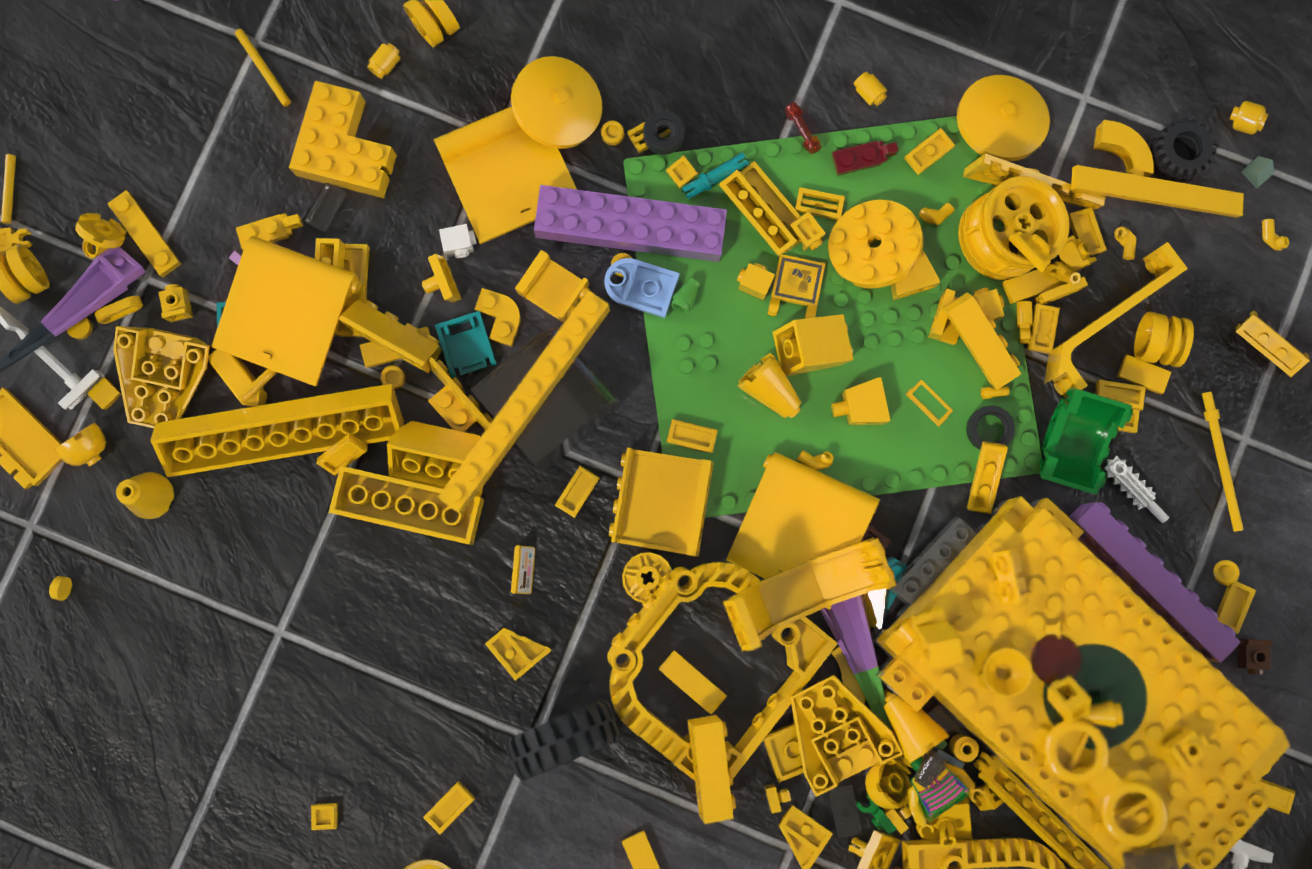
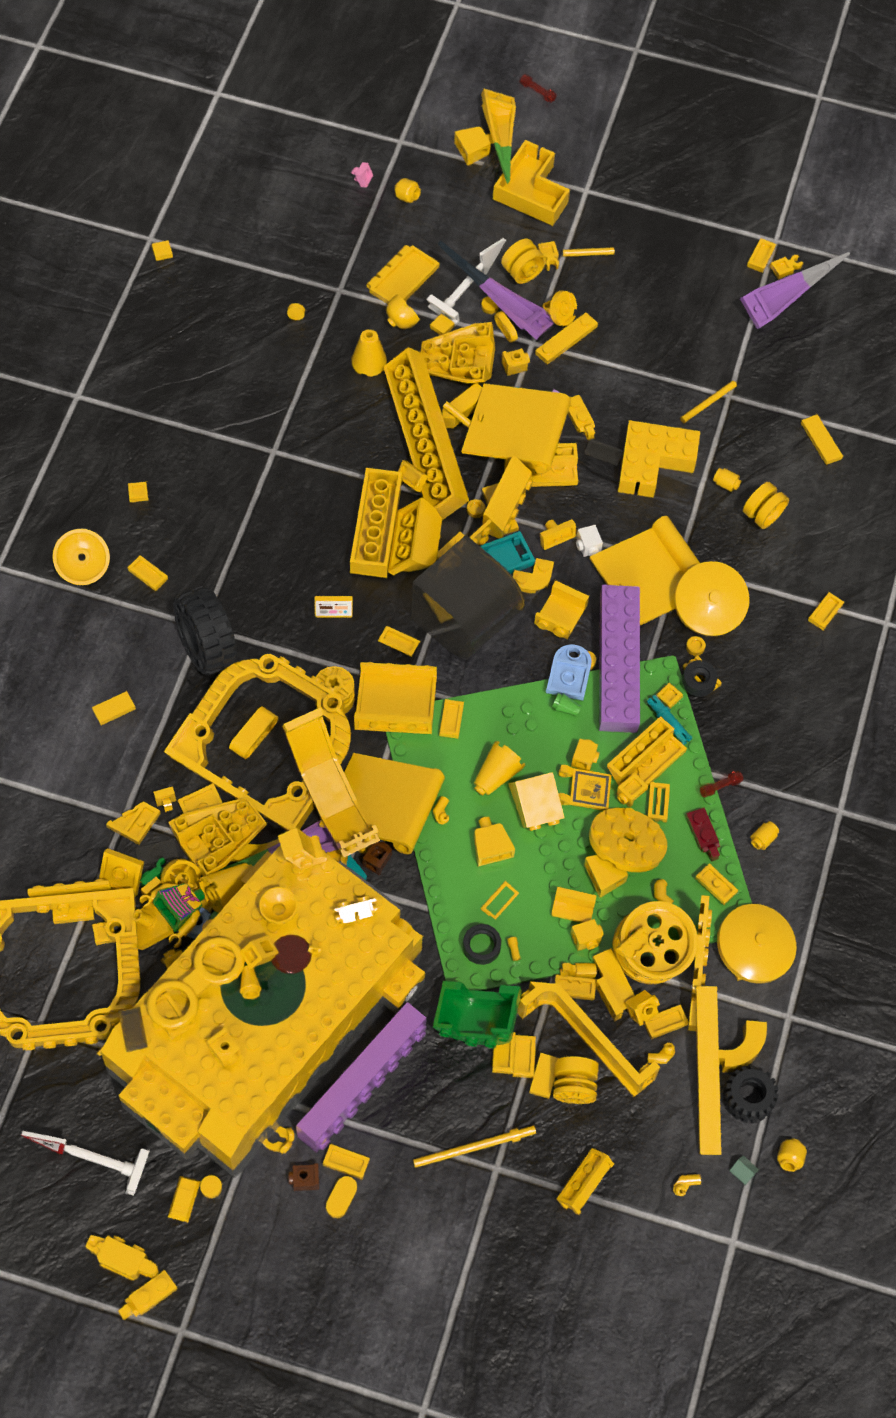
camera: 80 degrees right, 20 degrees down
(516, 652) = (268, 607): yellow wing -> none
(524, 402) = (460, 567): yellow brick -> none
(711, 769) = (187, 737): yellow brick -> none
(930, 768) = (196, 892): clear smoke cone -> none
(982, 341) = (555, 925): yellow brick -> none
(987, 477) = (445, 942): yellow tile -> none
(1063, 273) = (627, 992): yellow arm -> none
(1135, 489) = (442, 1071): white piece -> none
(1226, 572) = (375, 1151): yellow tile -> none
(1274, 615) = (341, 1197): none -> yellow tile

